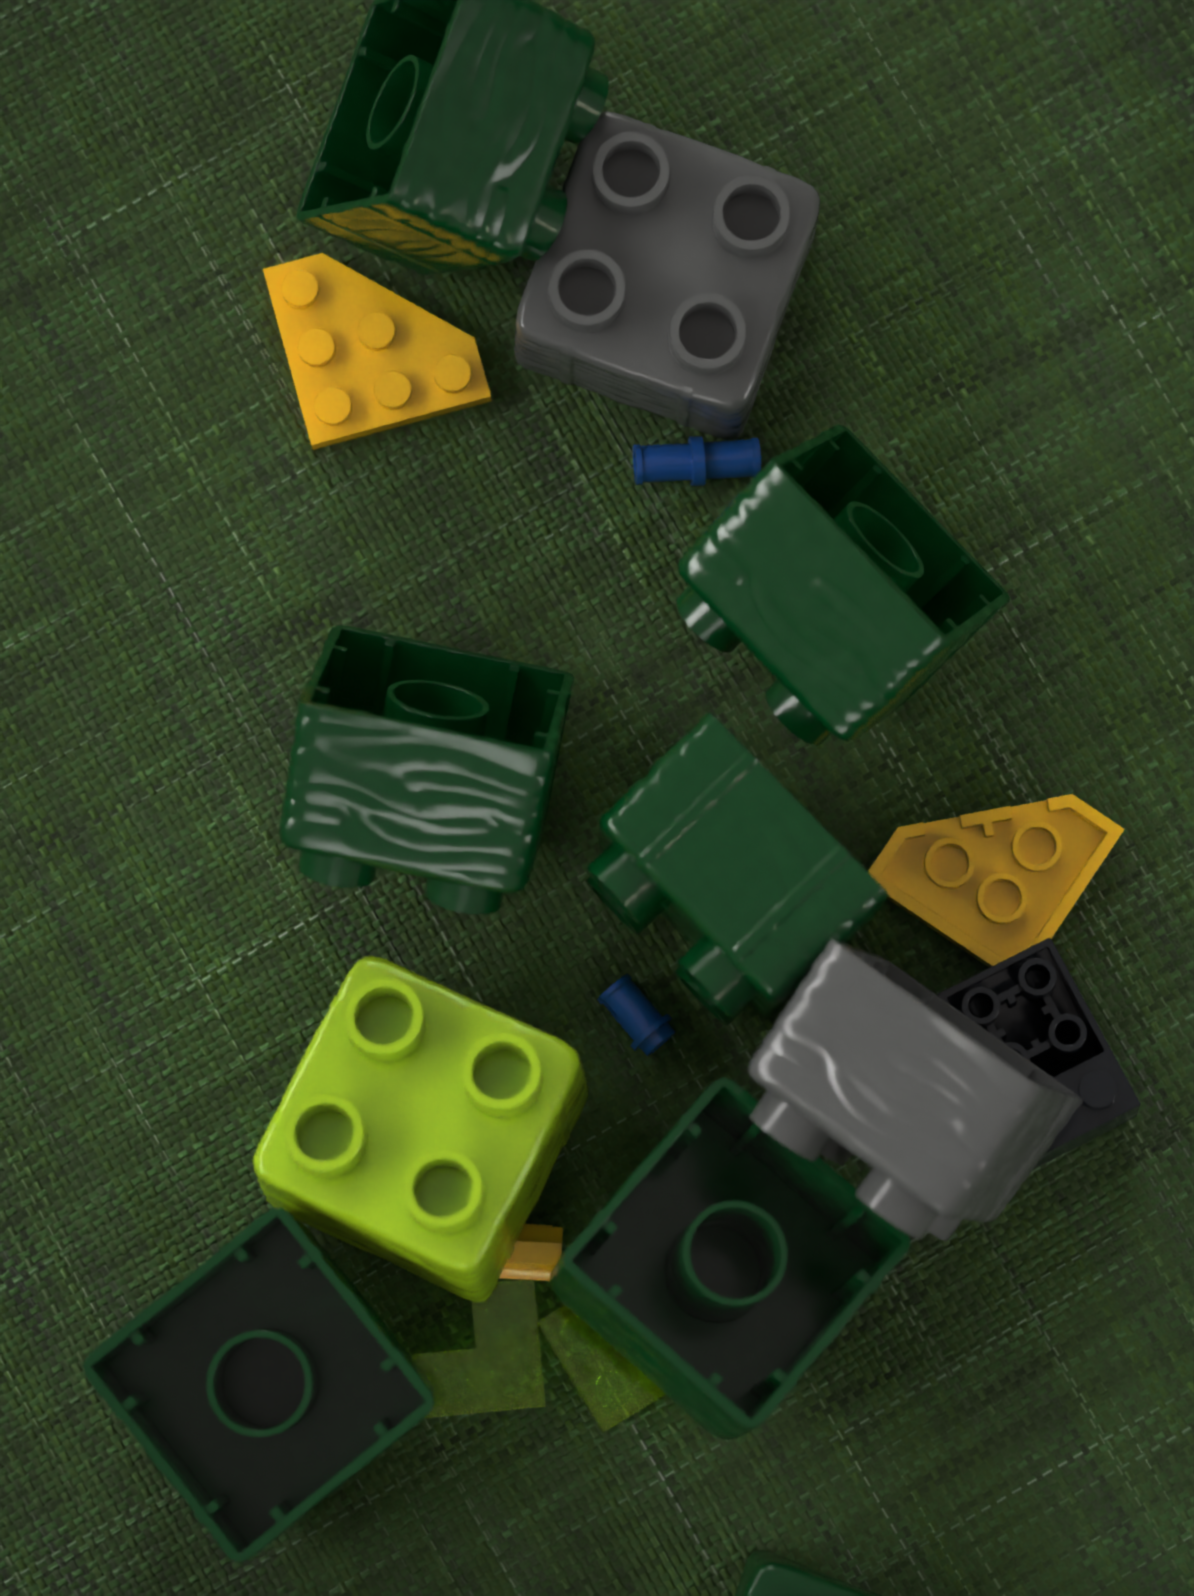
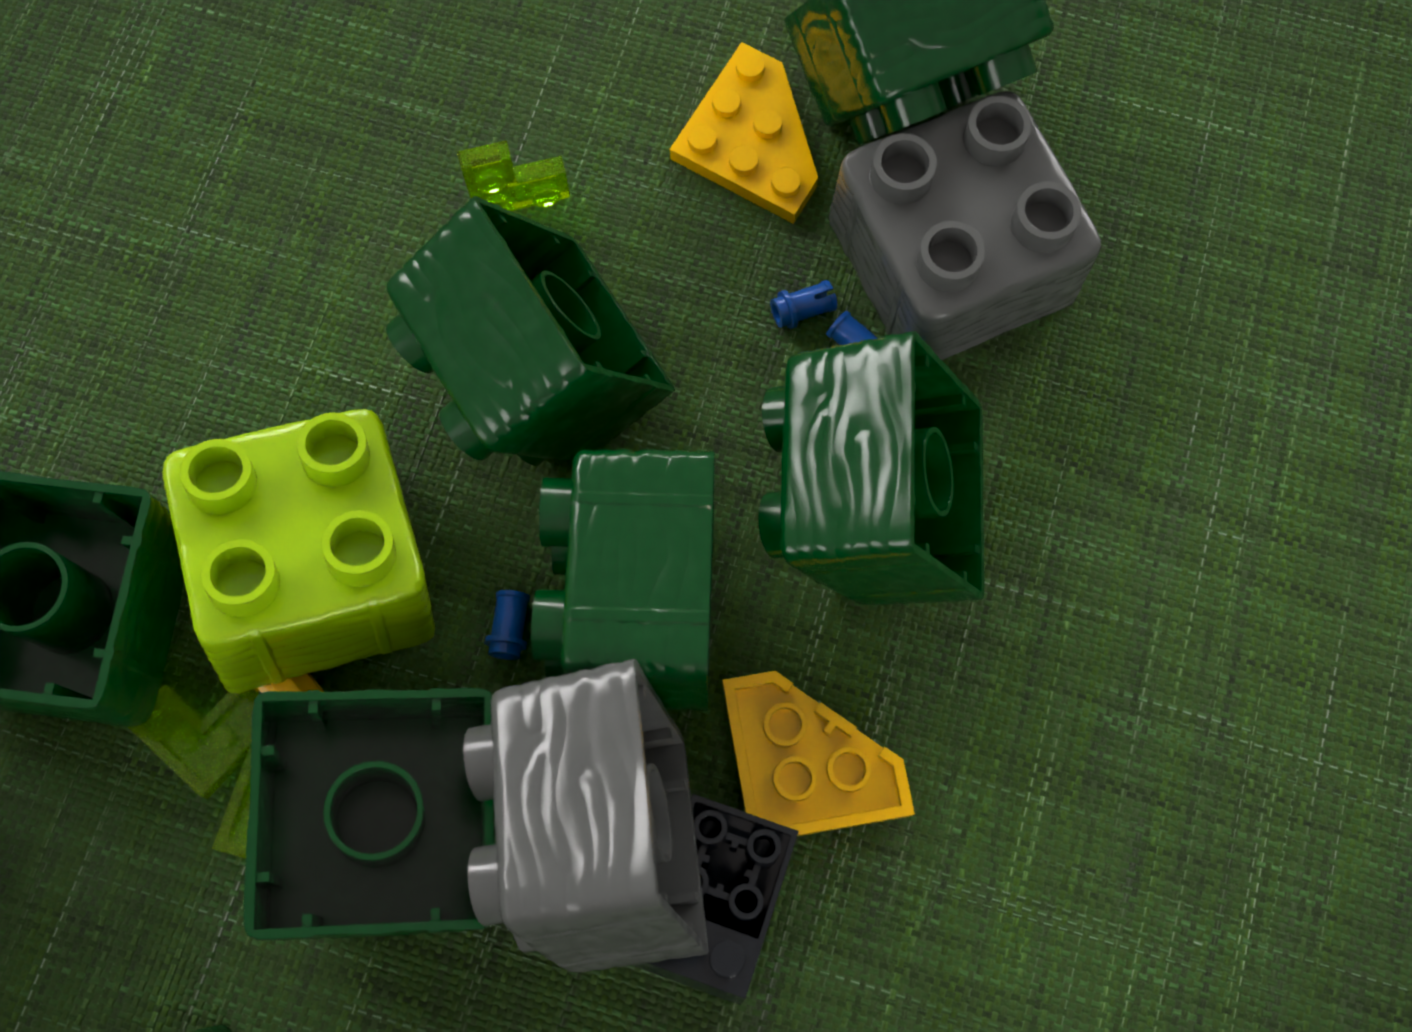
camera: 50 degrees right, 10 degrees down
(203, 641) = (492, 177): none -> clear neon green plate
(586, 477) = (802, 304): none -> blue pin

